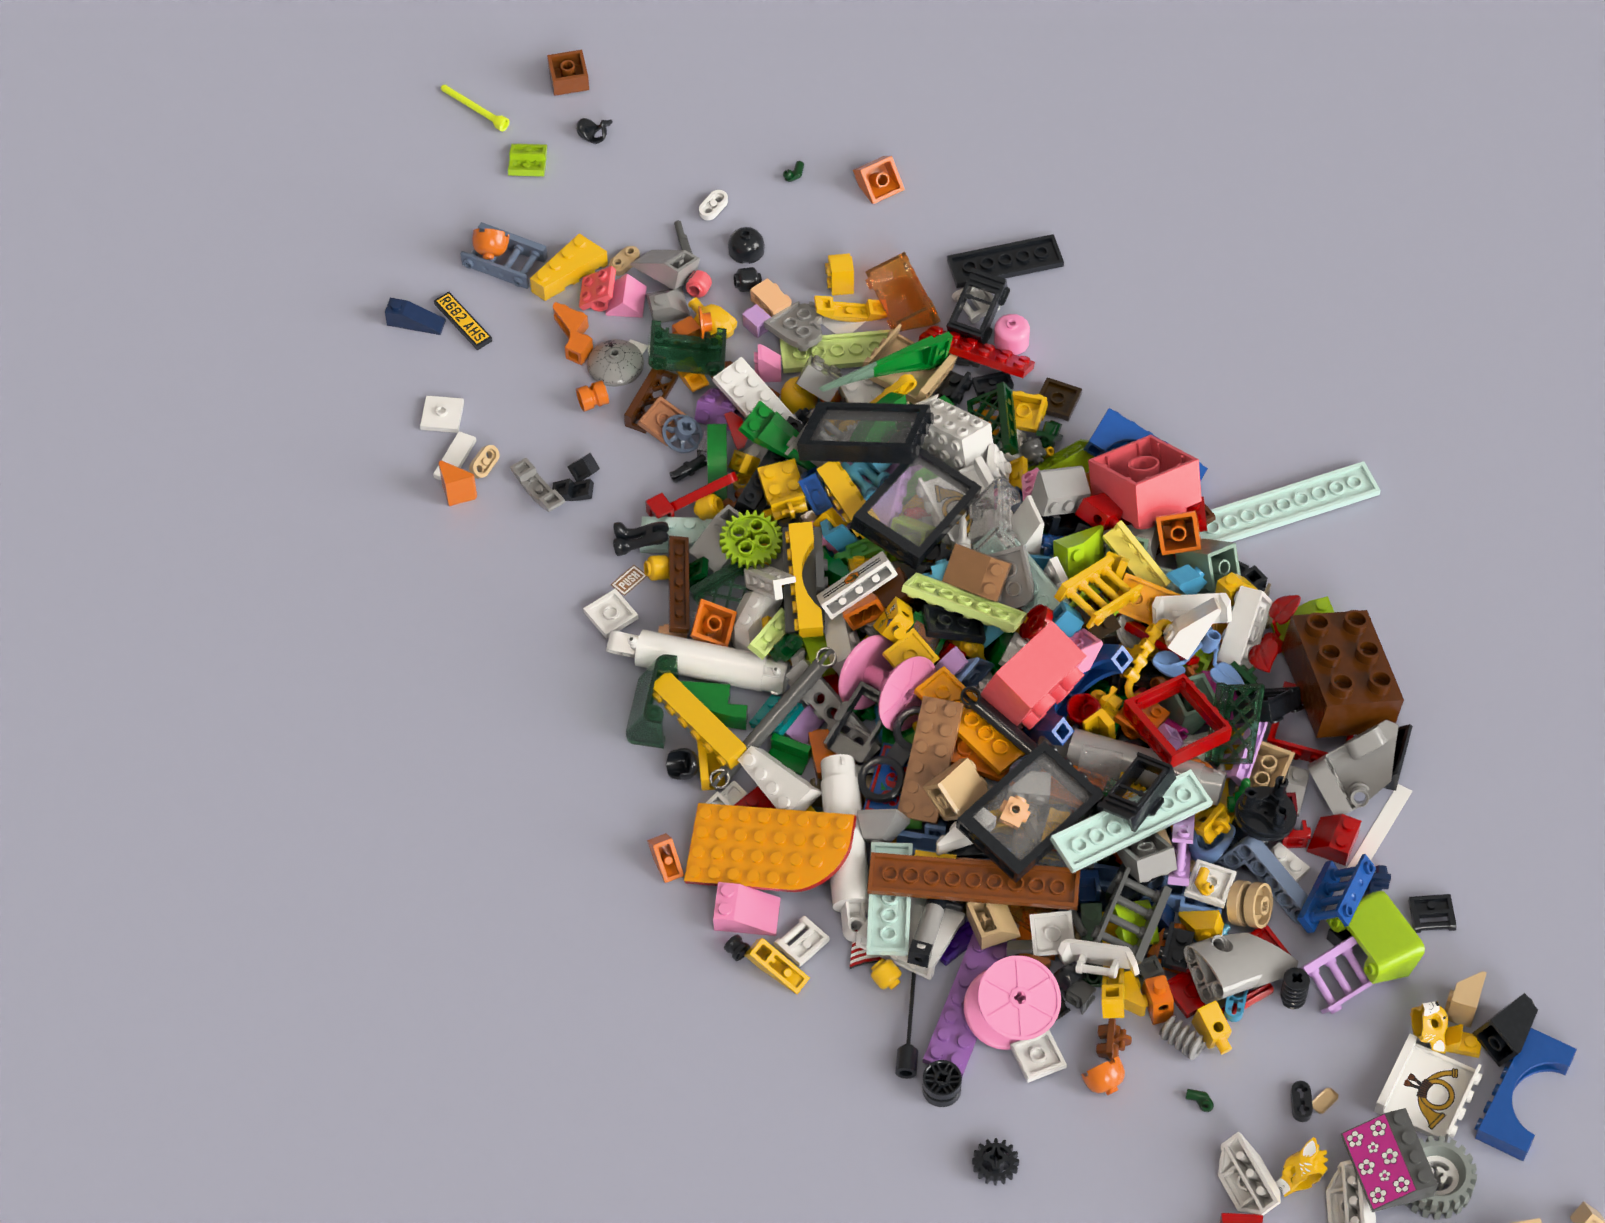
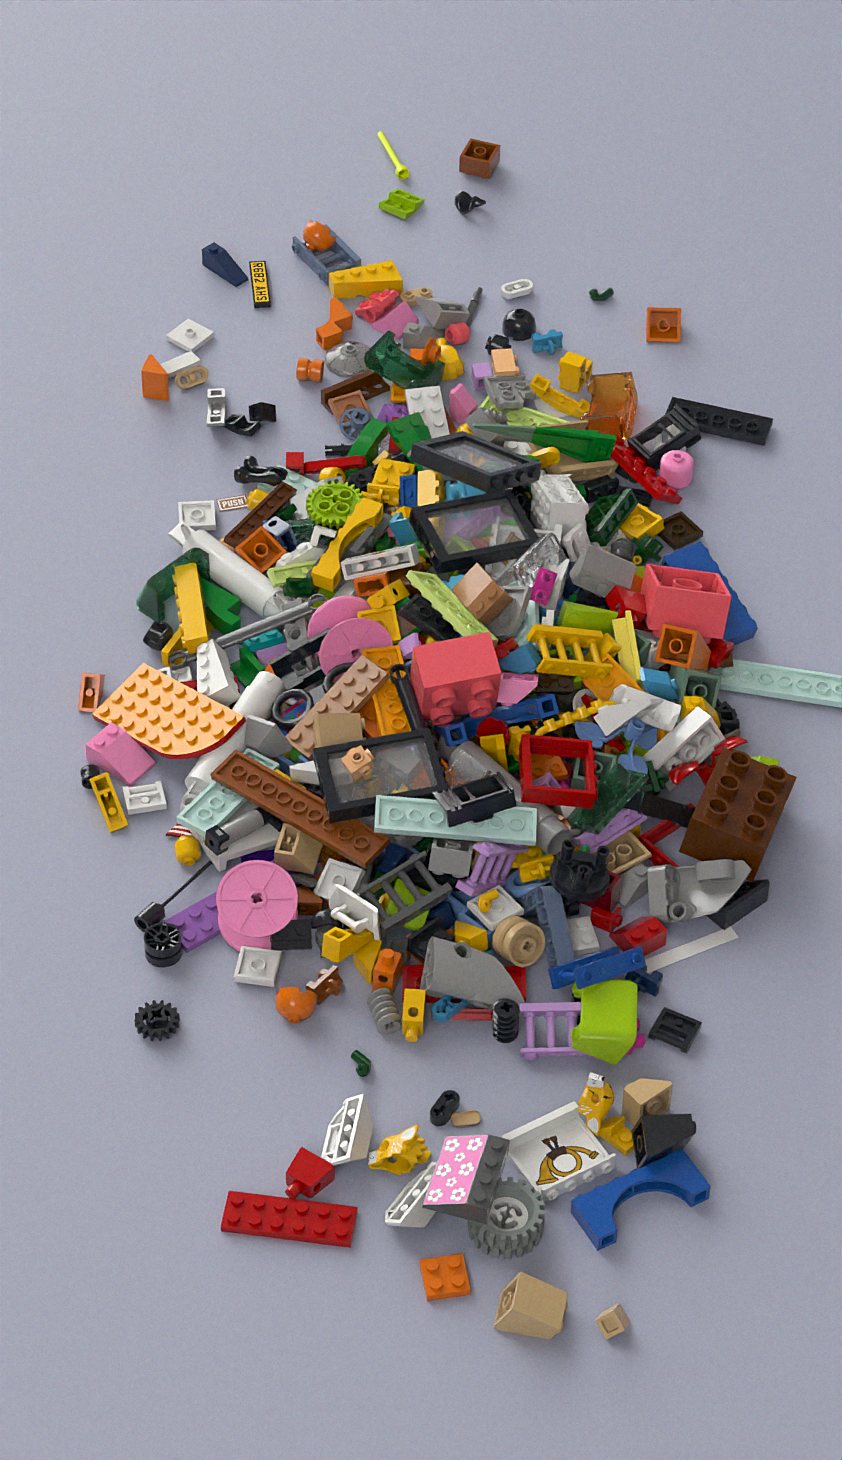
camera: 30 degrees right, 10 degrees down
(716, 593) = (281, 530): none -> dark blue torso
(789, 253) = (547, 342): none -> dark azure hips
(1029, 535) = (543, 586): none -> dark pink hips

